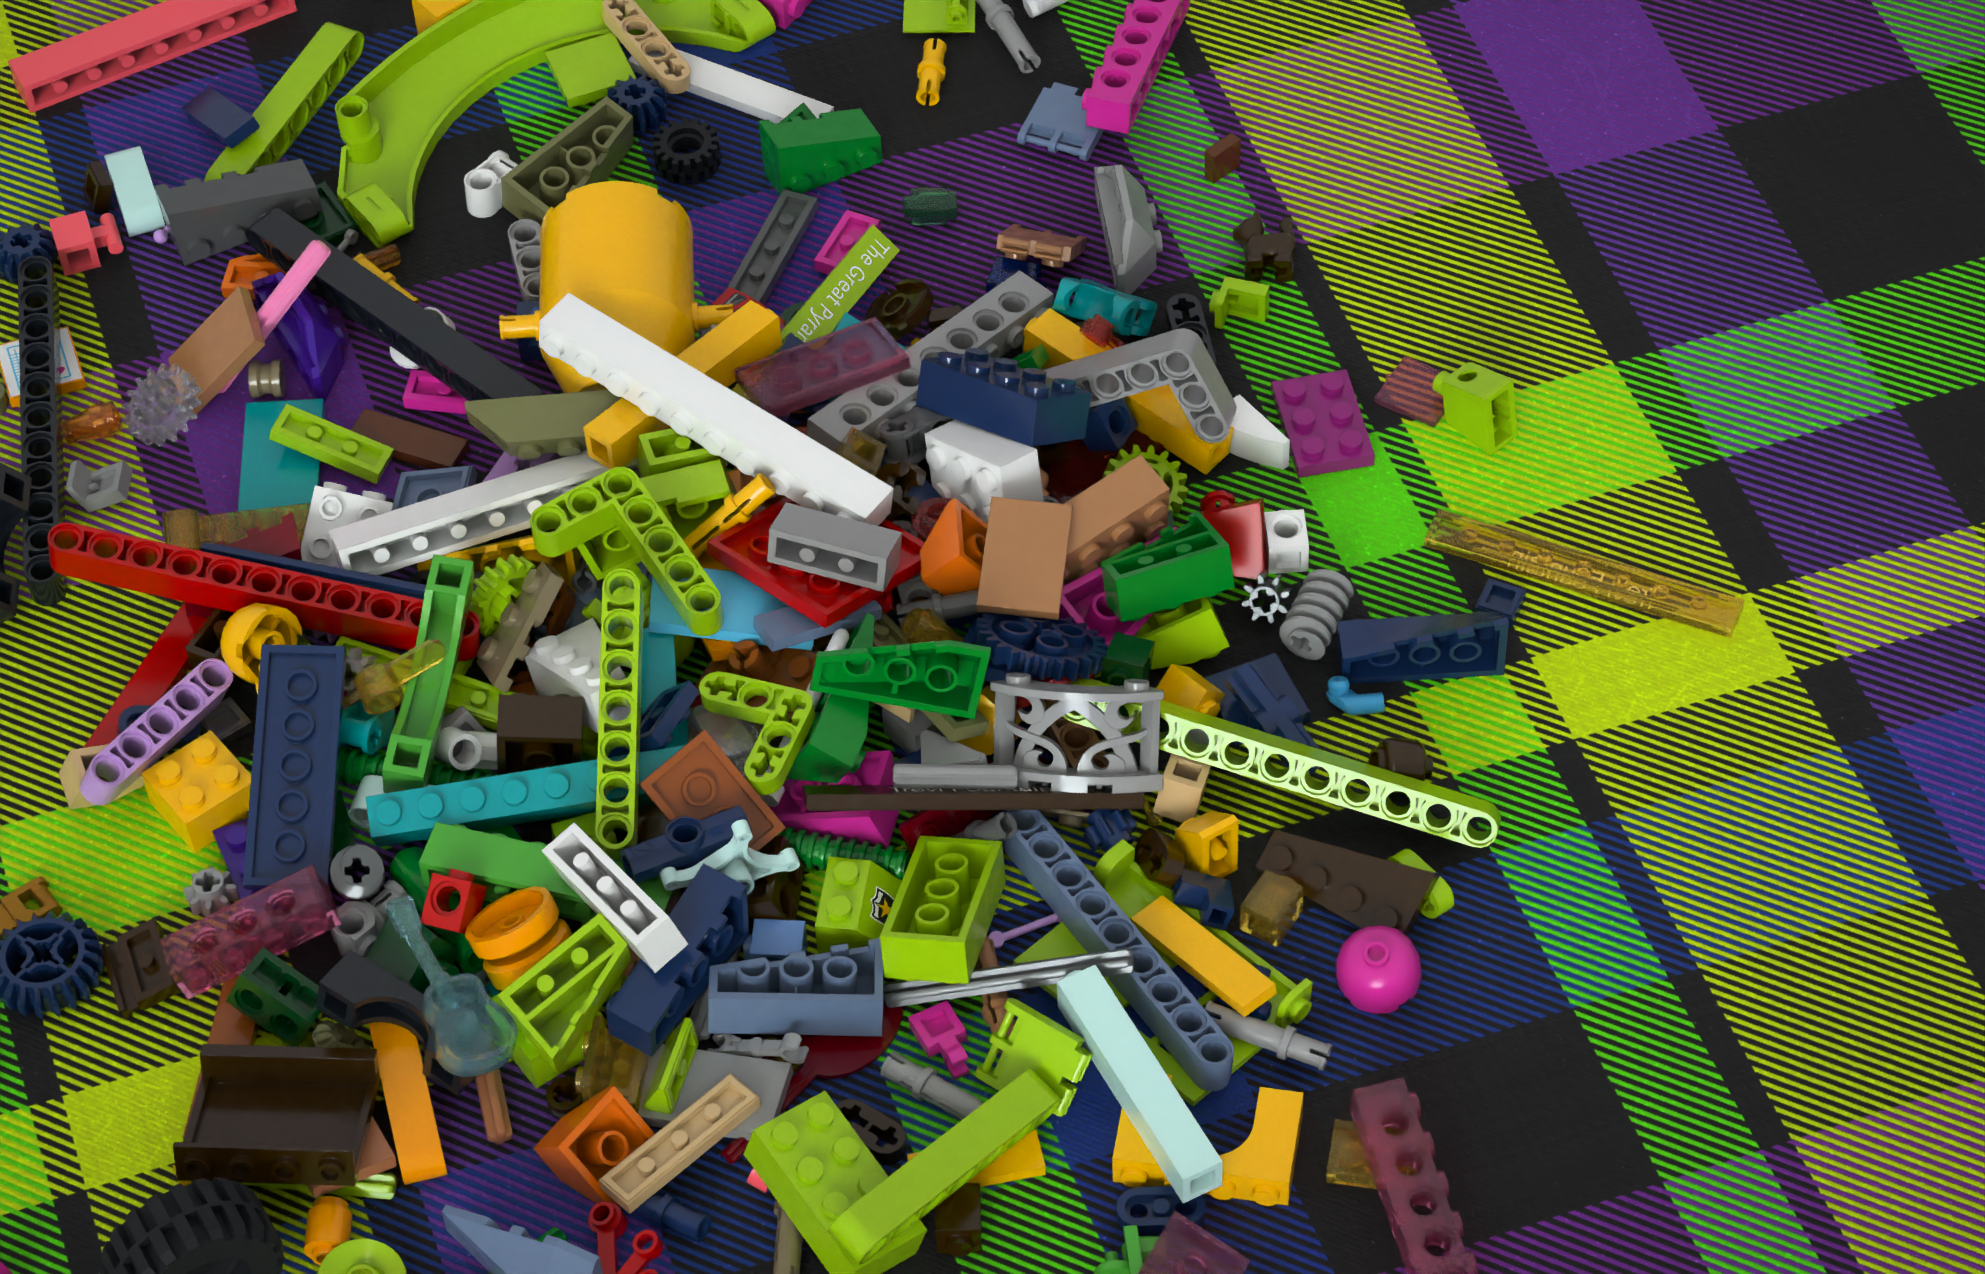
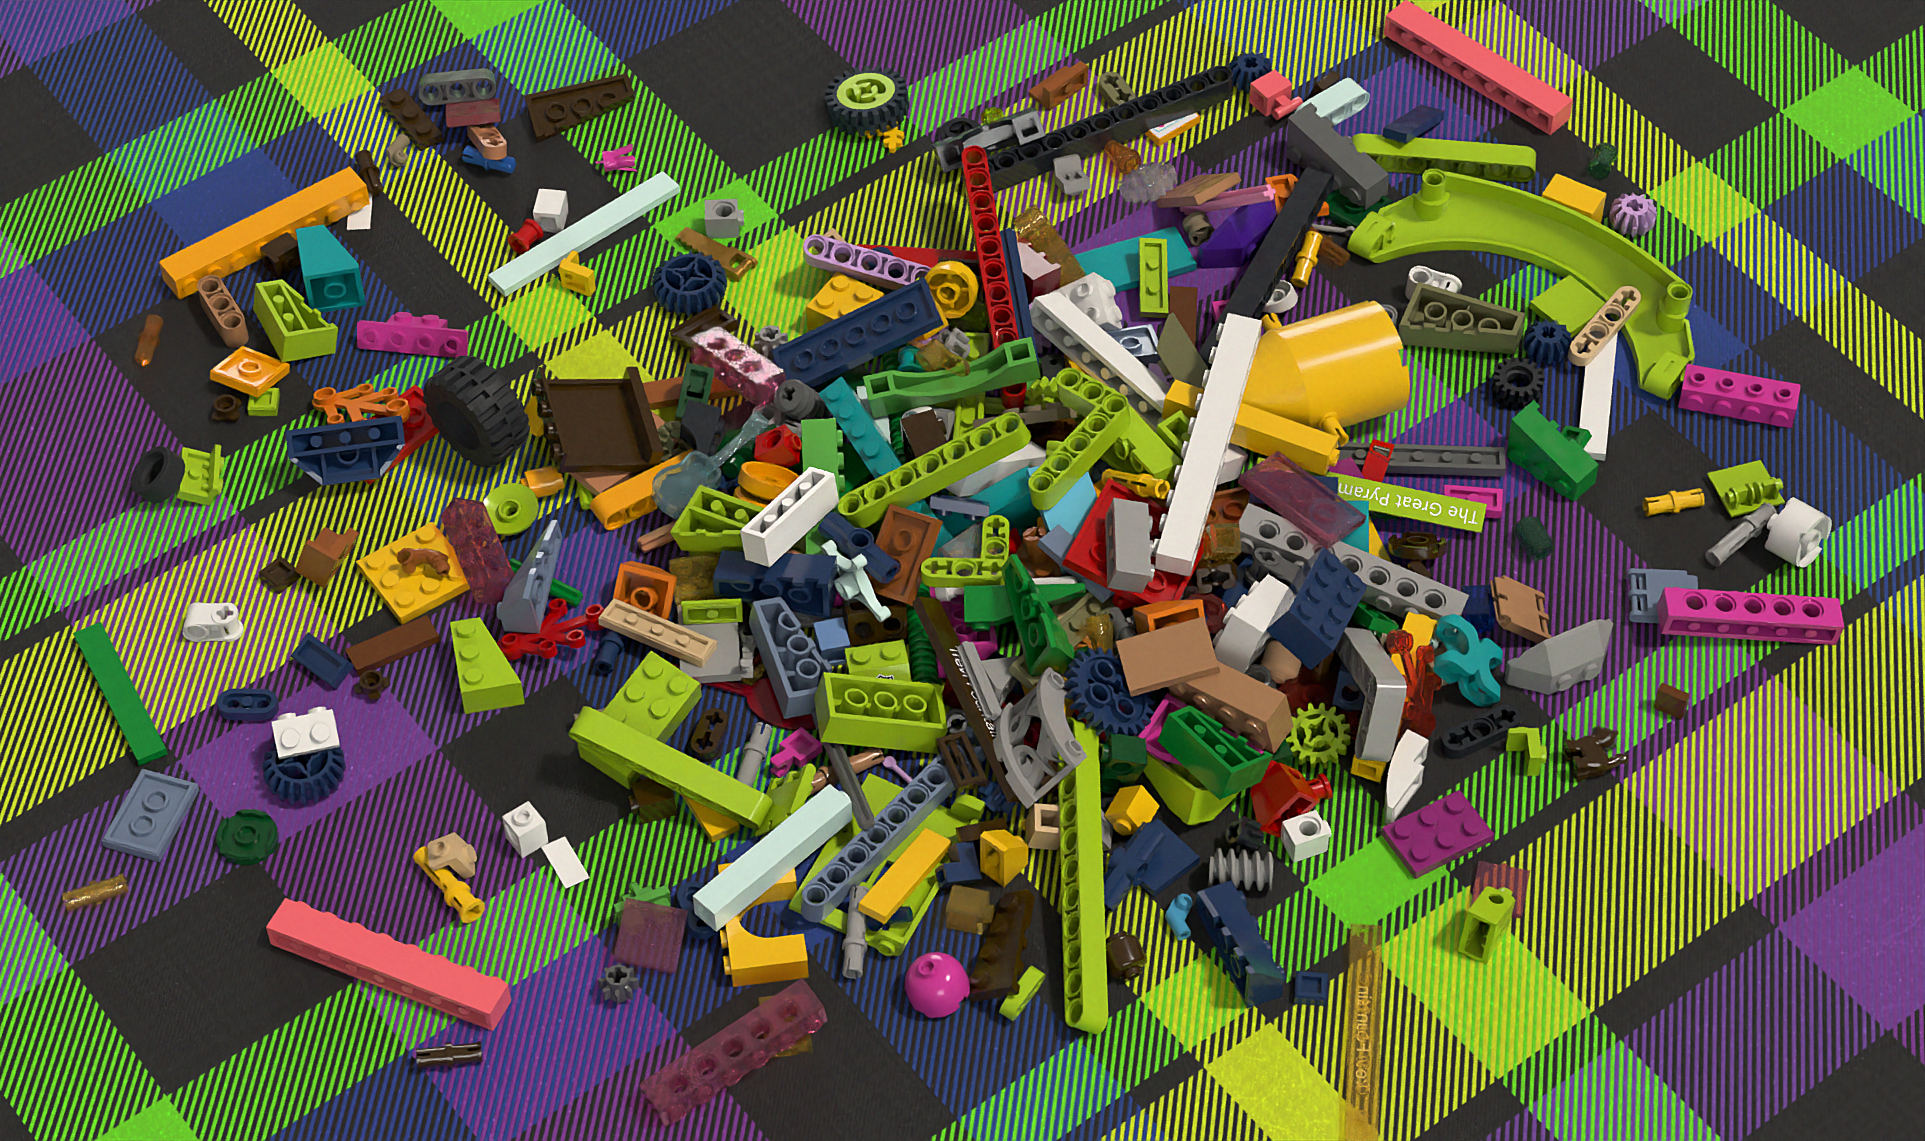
camera: 70 degrees right, 0 degrees up
(1062, 845) = (968, 782): none -> dark brown tile

